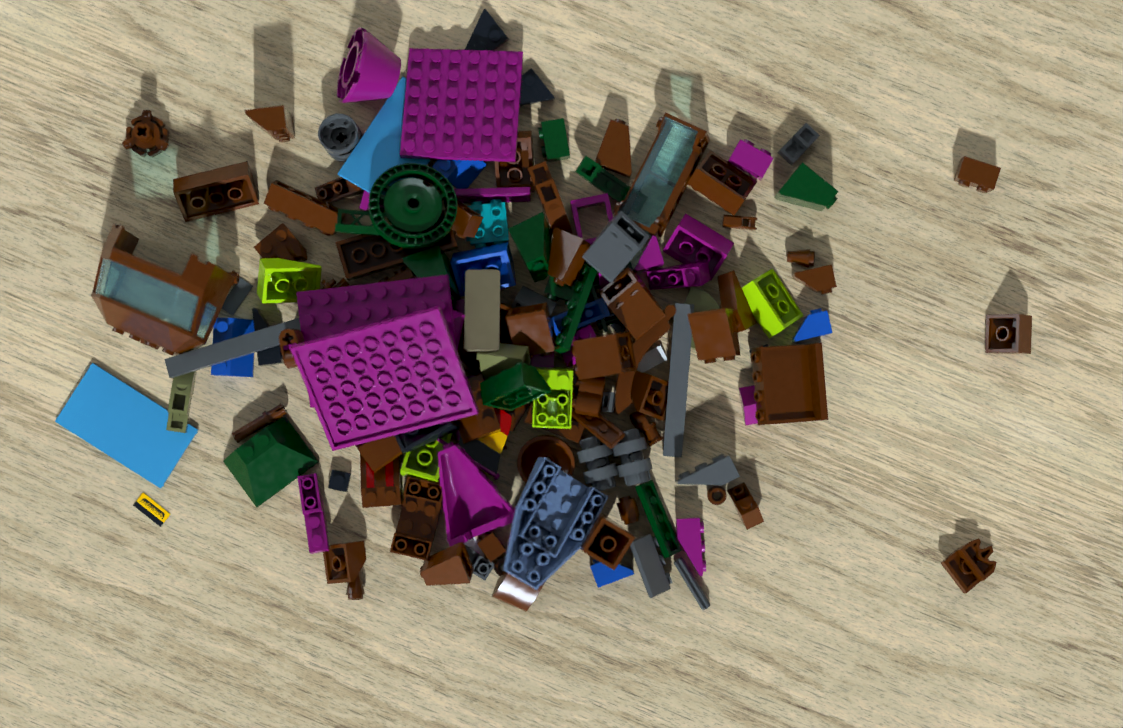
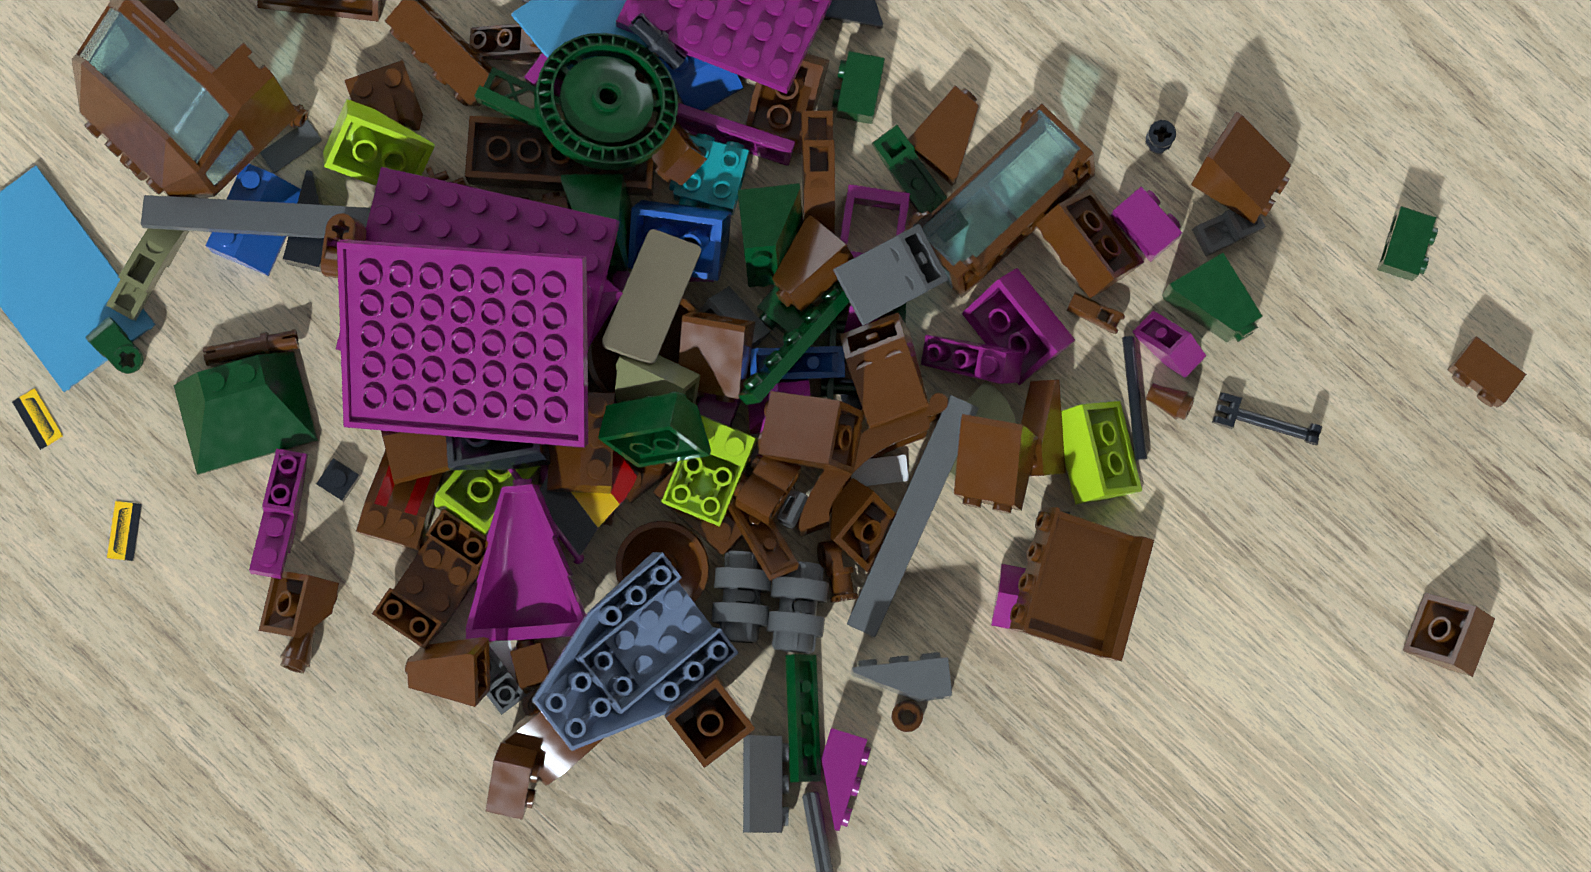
camera: 15 degrees right, 5 degrees down
(178, 451) = (111, 342): none -> dark green piece
(227, 555) = (124, 531): none -> sticker
(429, 158) = (657, 41): none -> black pin
(506, 617) = (512, 780): none -> reddish brown brick
(605, 575) = (688, 772): blue slope -> none
(628, 510) = (762, 687): reddish brown brick -> none
(650, 258) = (937, 315): magenta slope -> none
(736, 109) = (1169, 136): none -> black bush
(745, 505) = (945, 748): reddish brown slope -> none
(780, 264) = (1134, 398): none -> black bar
(789, 224) = (1169, 343): none -> magenta slope
(795, 108) = (1243, 170): none -> reddish brown slope
(813, 326) = (1153, 511): blue slope -> none
(817, 279) = (1182, 441): reddish brown slope -> none
(840, 251) = (1233, 412): none -> black hinge
(905, 115) = (1408, 243): none -> dark green brick

